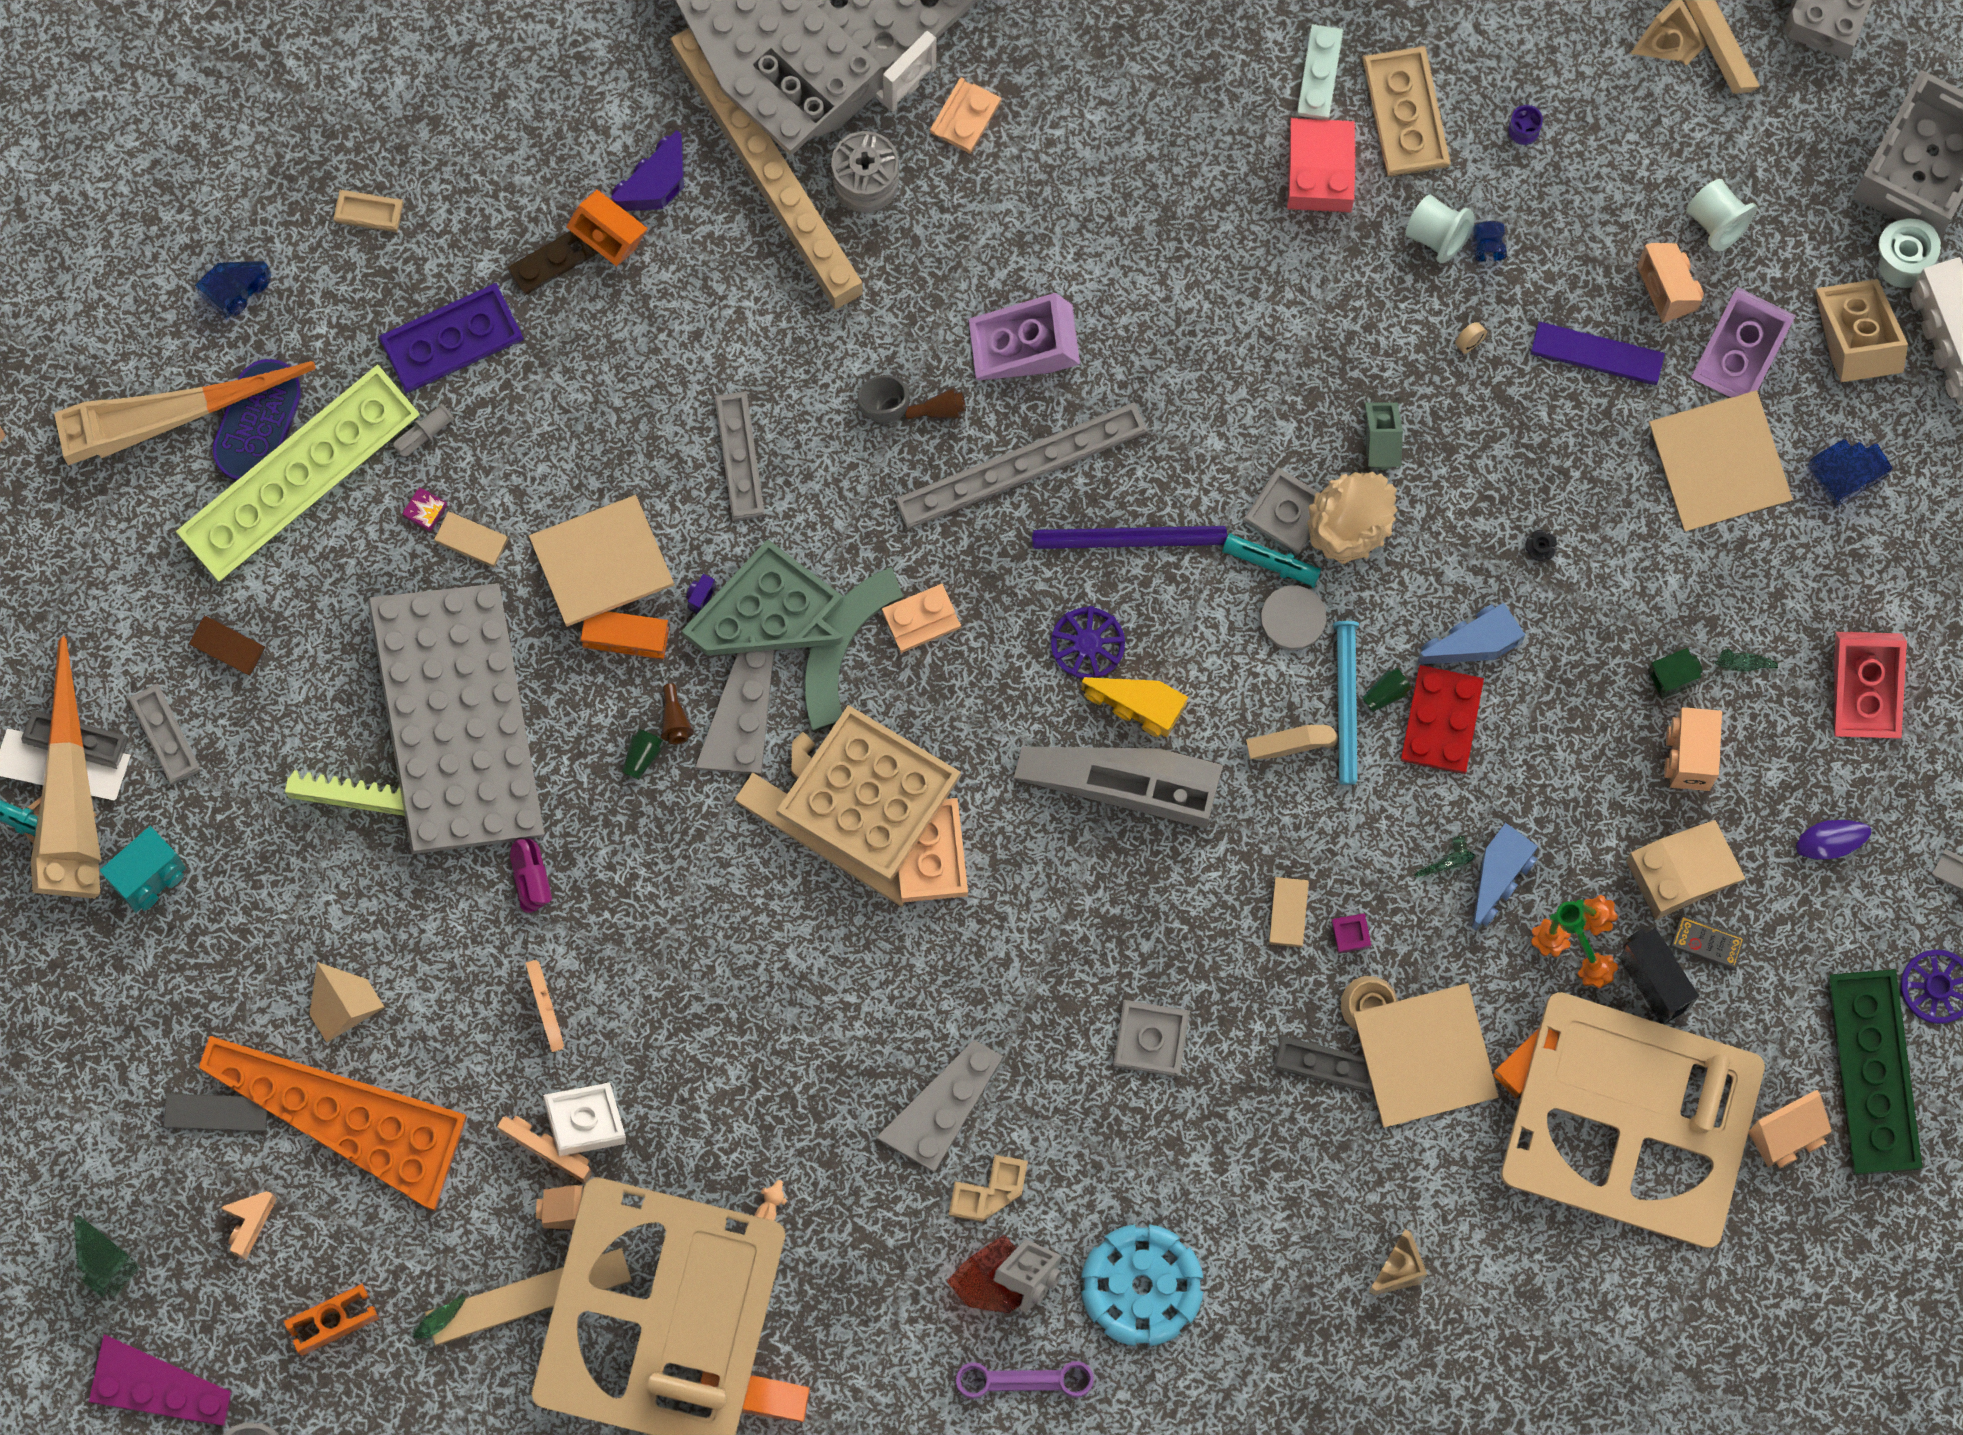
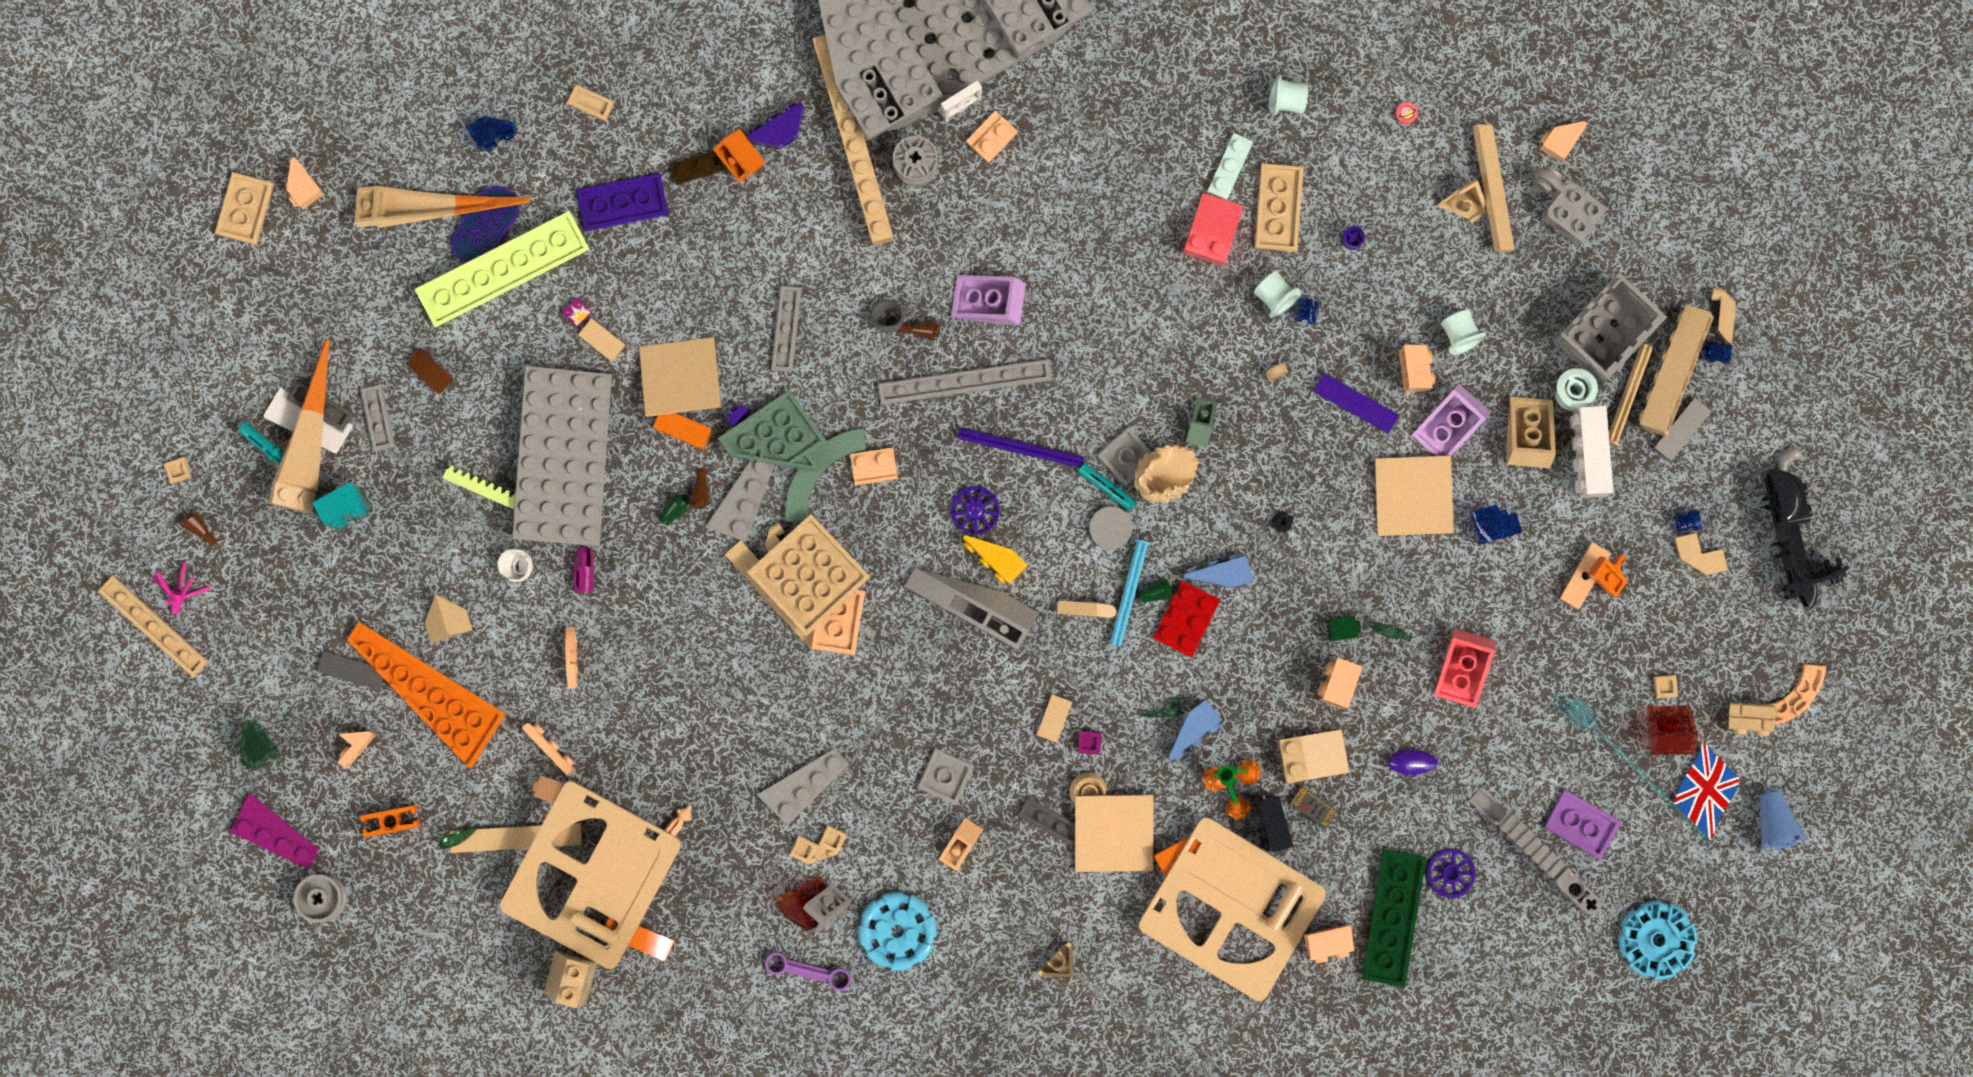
camera: 15 degrees right, 10 degrees up
(416, 885) = (510, 559): none -> white hair
(423, 431) = (588, 260): light grey axle -> none
(584, 1119) = (577, 736): white tile -> none
(1202, 1131) = (961, 844): none -> light nougat slope

